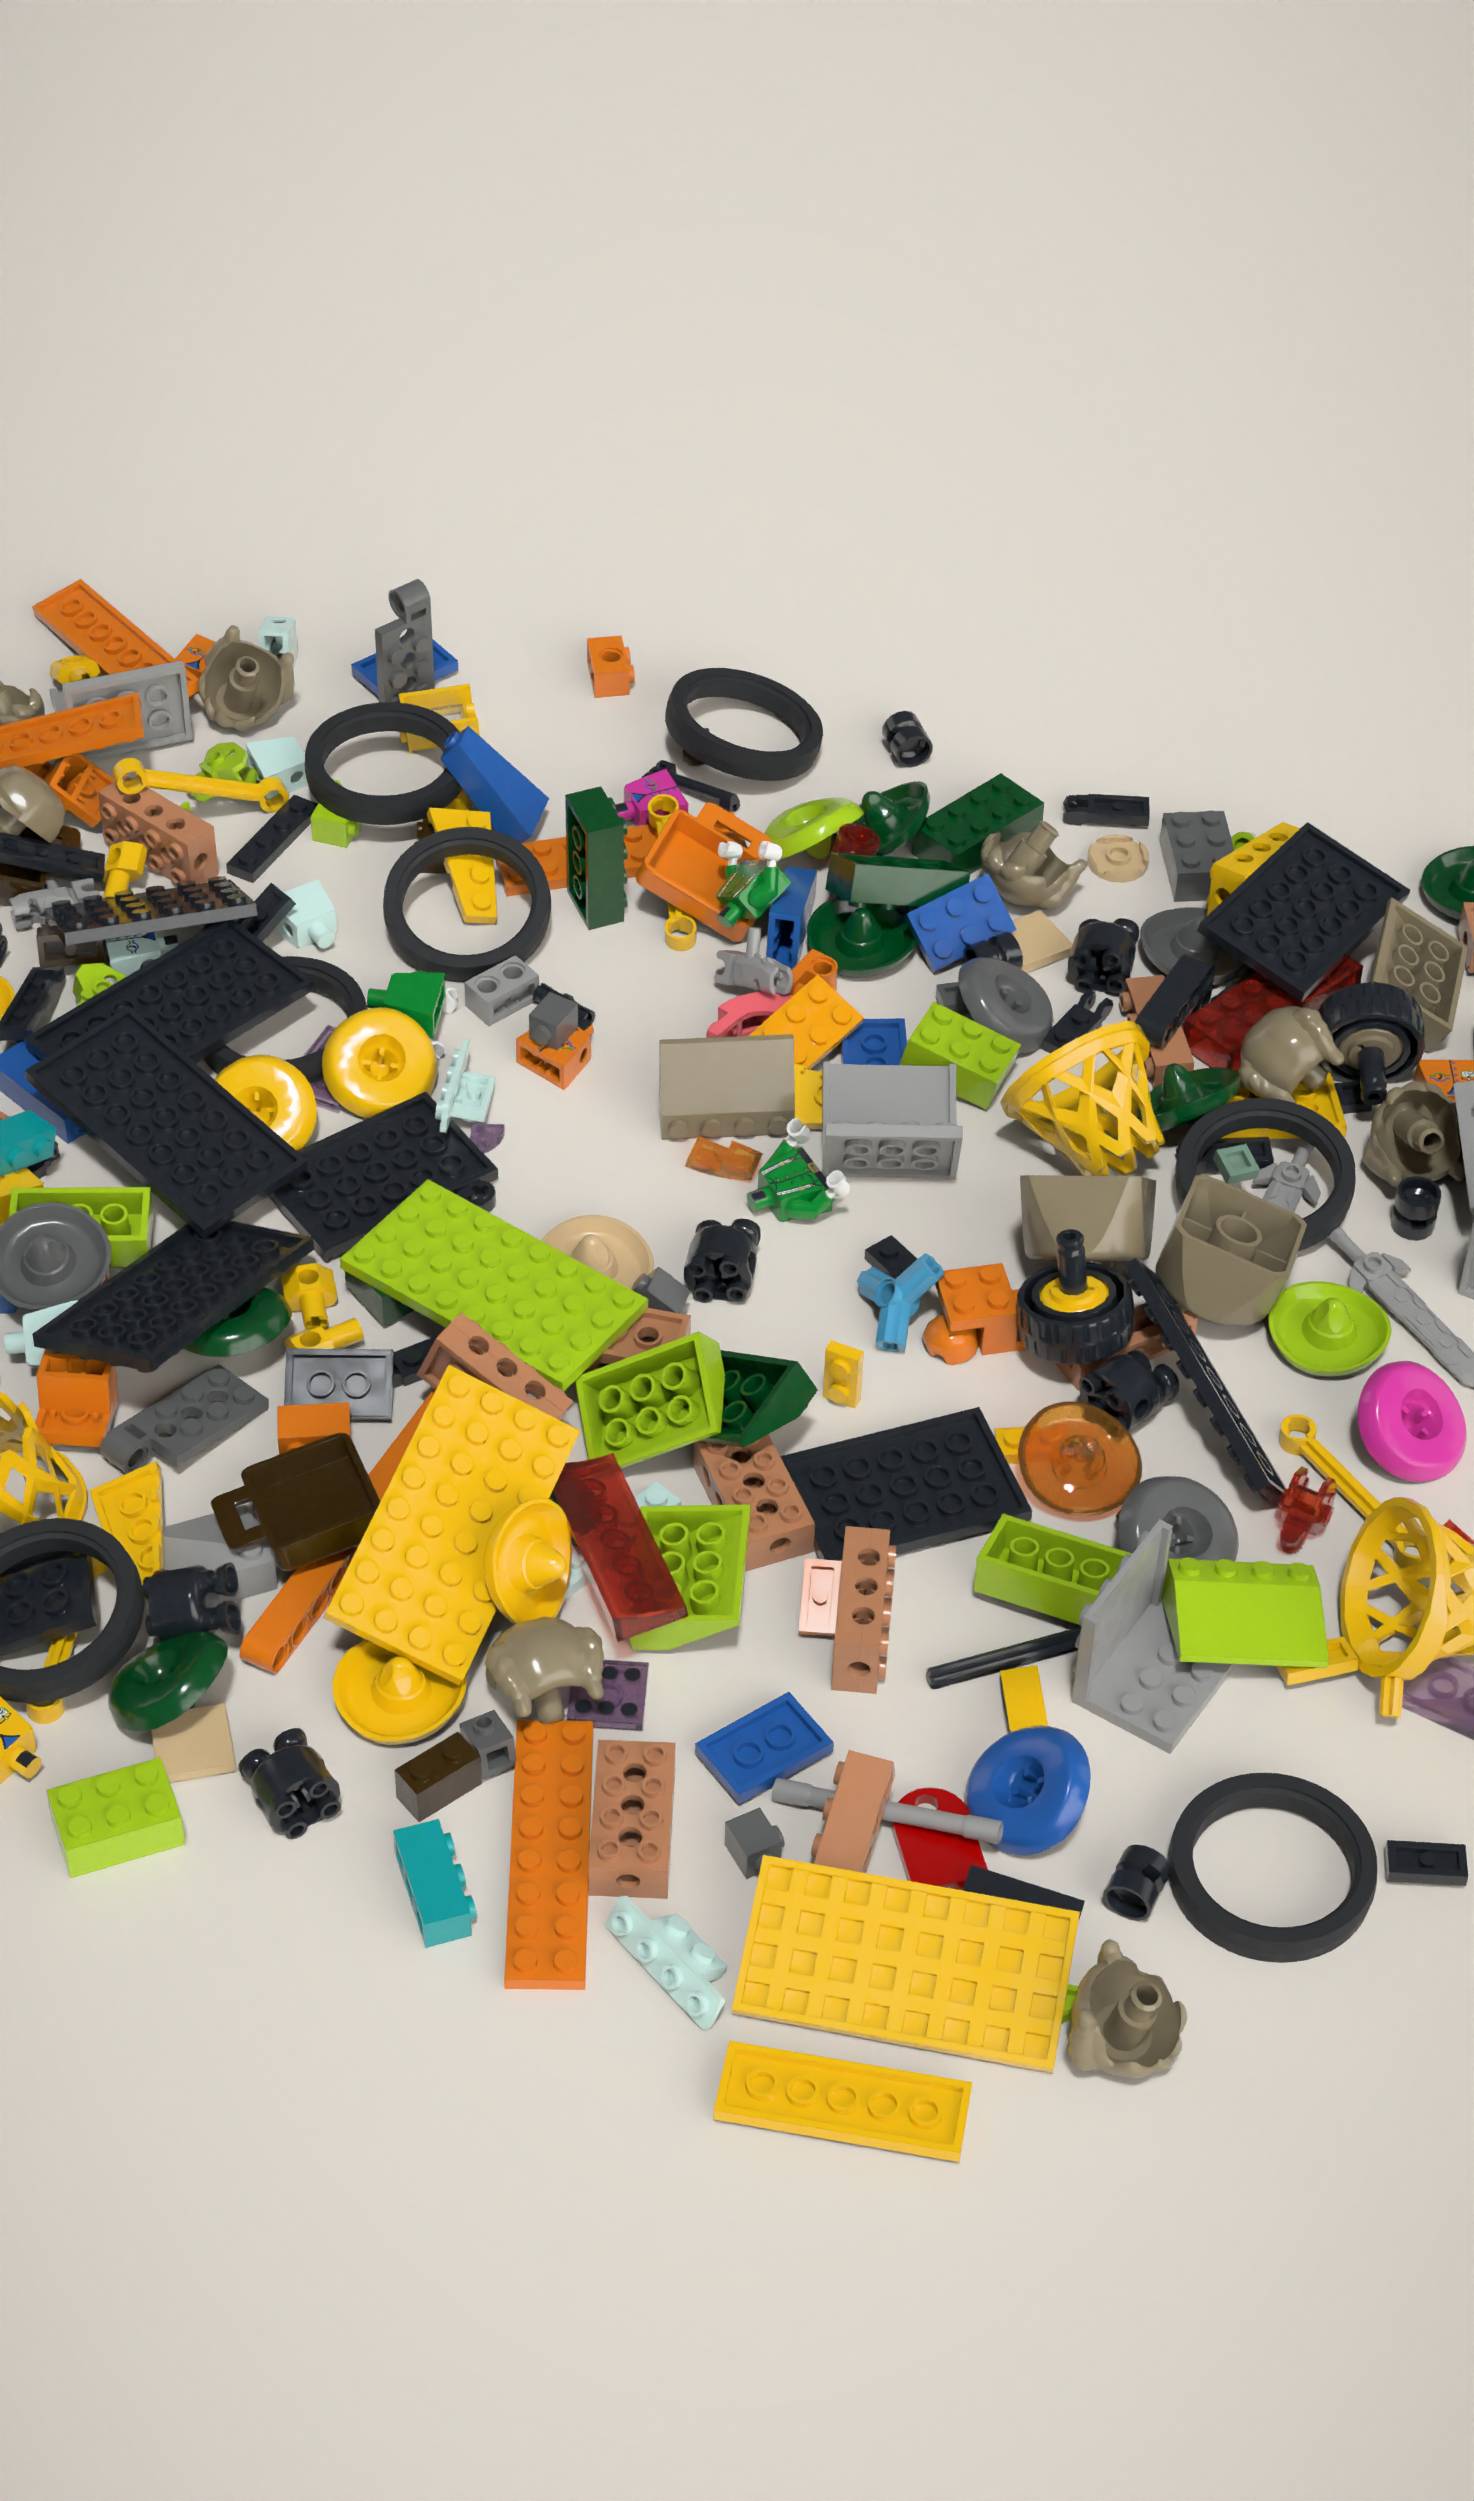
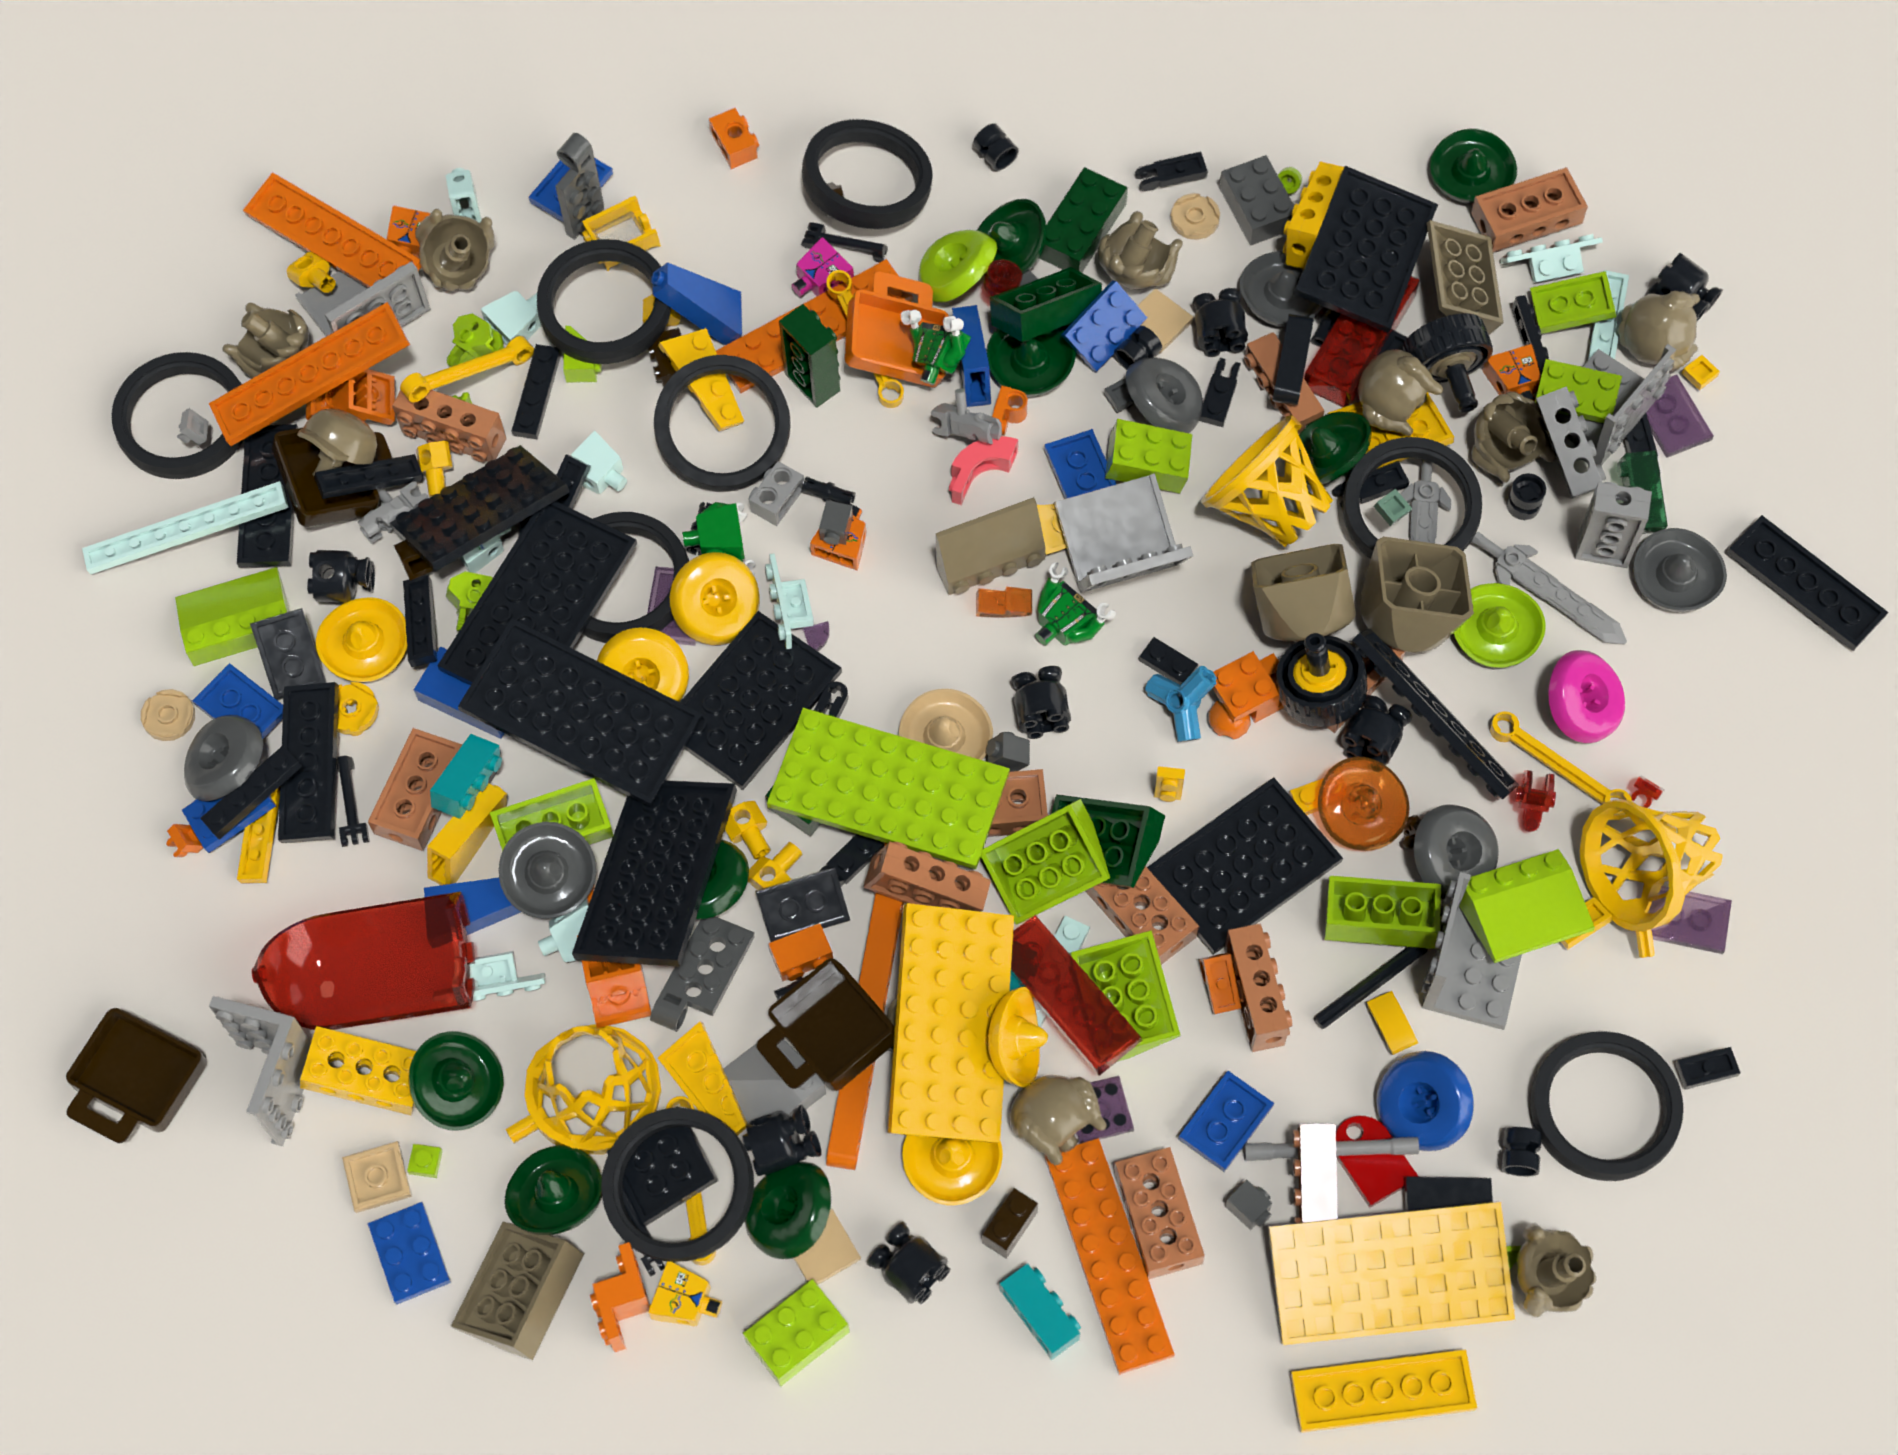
camera: 15 degrees left, 20 degrees up
(491, 1741) = (1034, 1182): dark grey brick -> none
(672, 1957) = (1228, 1315): light aqua bracket -> none
(816, 1019) = (1021, 468): light orange plate -> none
(1350, 1097) = (1445, 401): black tile -> none

